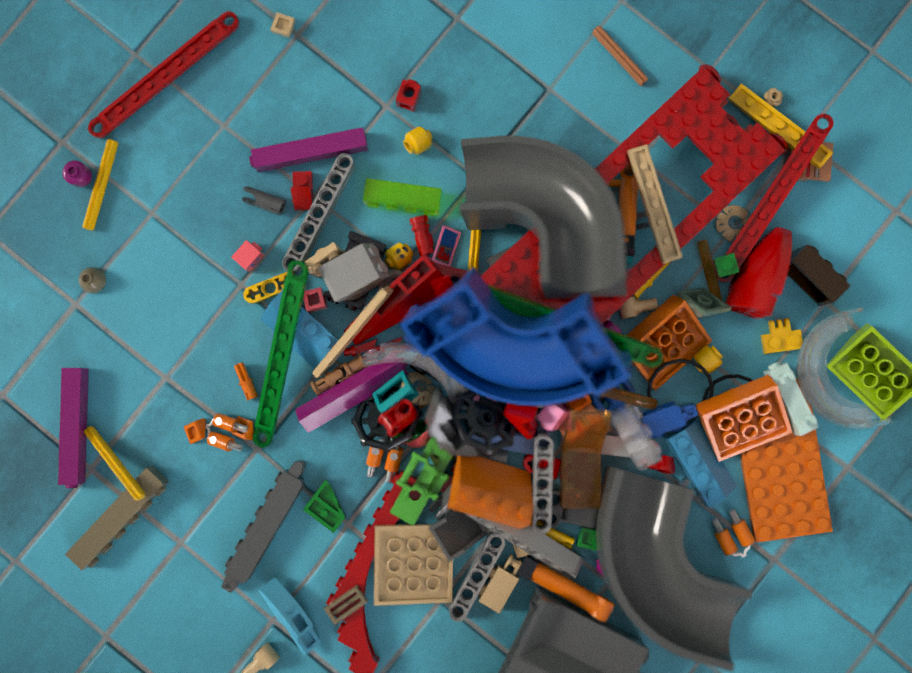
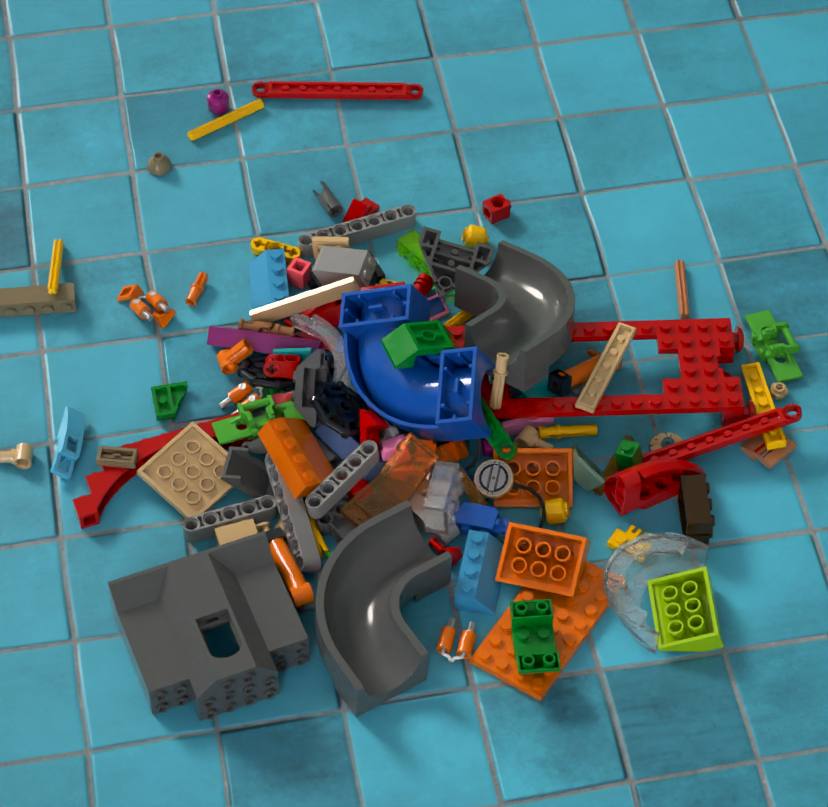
camera: 35 degrees right, 35 degrees down
(72, 426) = (55, 227): magenta brick -> none
(248, 255) = (281, 220): coral brick -> none
(266, 525) = (113, 378): dark grey hinge -> none
(280, 353) = (239, 281): green plate -> none
(283, 25) = (449, 116): tan plate -> none
(308, 150) = (391, 191): magenta brick -> none
(339, 427) = (230, 358): none -> orange piece
(436, 193) = (444, 257): none -> dark grey wedge
(516, 326) = (417, 340): none -> green slope
(600, 300) = (500, 373): none -> tan axle
(645, 379) = (494, 478): none -> tile
(732, 60) = (764, 340): none -> bright green piece
(796, 407) = (593, 573): light aqua brick -> none
(803, 500) = (533, 636): none -> green slope

